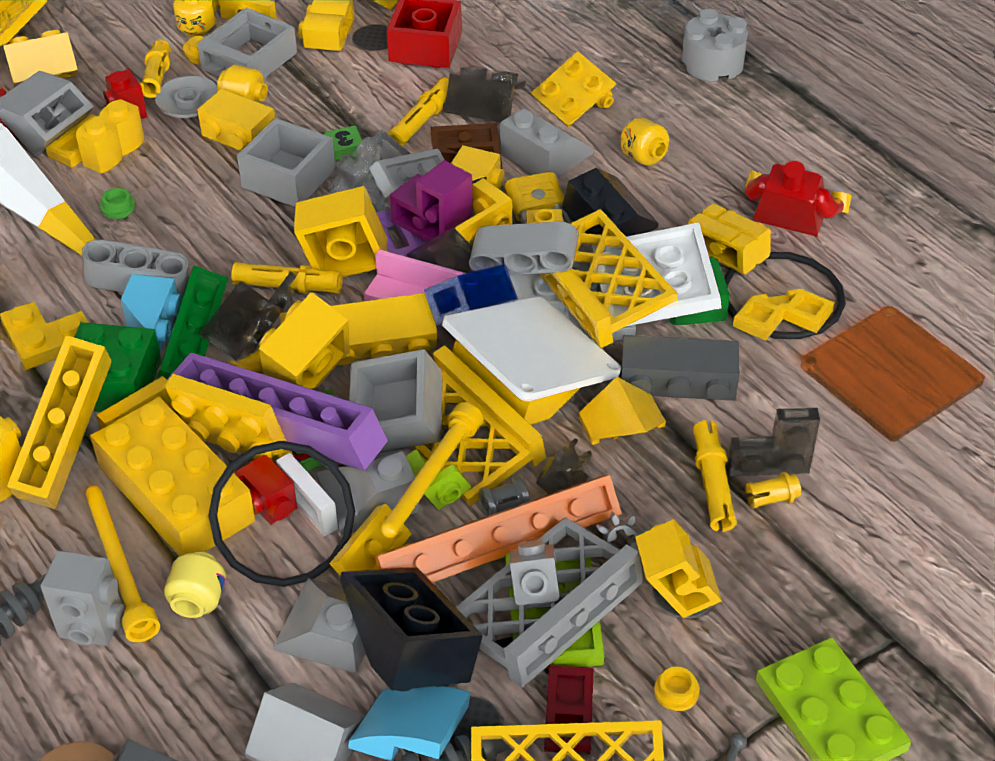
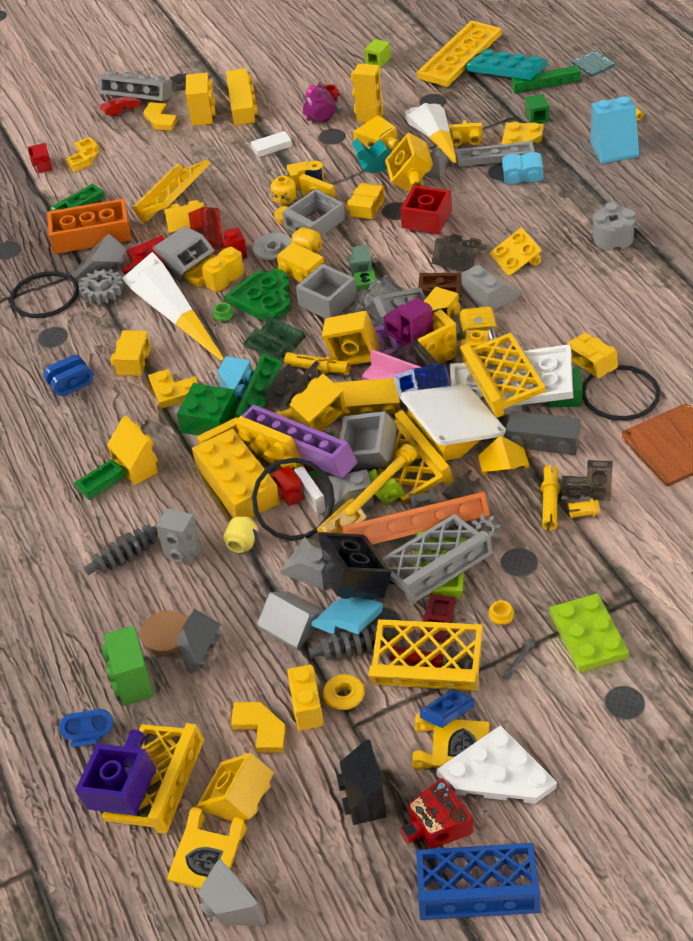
camera: 15 degrees right, 0 degrees up
(60, 422) = (175, 439): yellow brick -> none
(77, 62) = (207, 222): none -> clear red panel
(112, 263) = (214, 349): light grey beam -> none
(138, 618) = (208, 550): yellow piece -> none
(156, 63) = (256, 223): yellow pin -> none
(180, 174) = (262, 295): none -> green plate
(212, 241) = (274, 339): none -> clear green slope
(333, 110) = (360, 259): none -> sand green brick
(429, 104) = (421, 258): yellow pin -> none
(525, 247) = (458, 353): light grey beam -> none
(534, 573) = (427, 541): light grey bracket -> none
(606, 192) = (523, 328): black slope -> none
(644, 141) = (553, 289): yellow head -> none
(677, 568) = (512, 547): yellow brick -> none
(764, 313) = (627, 401): yellow tile -> none
(794, 198) = (640, 332): red torso -> none

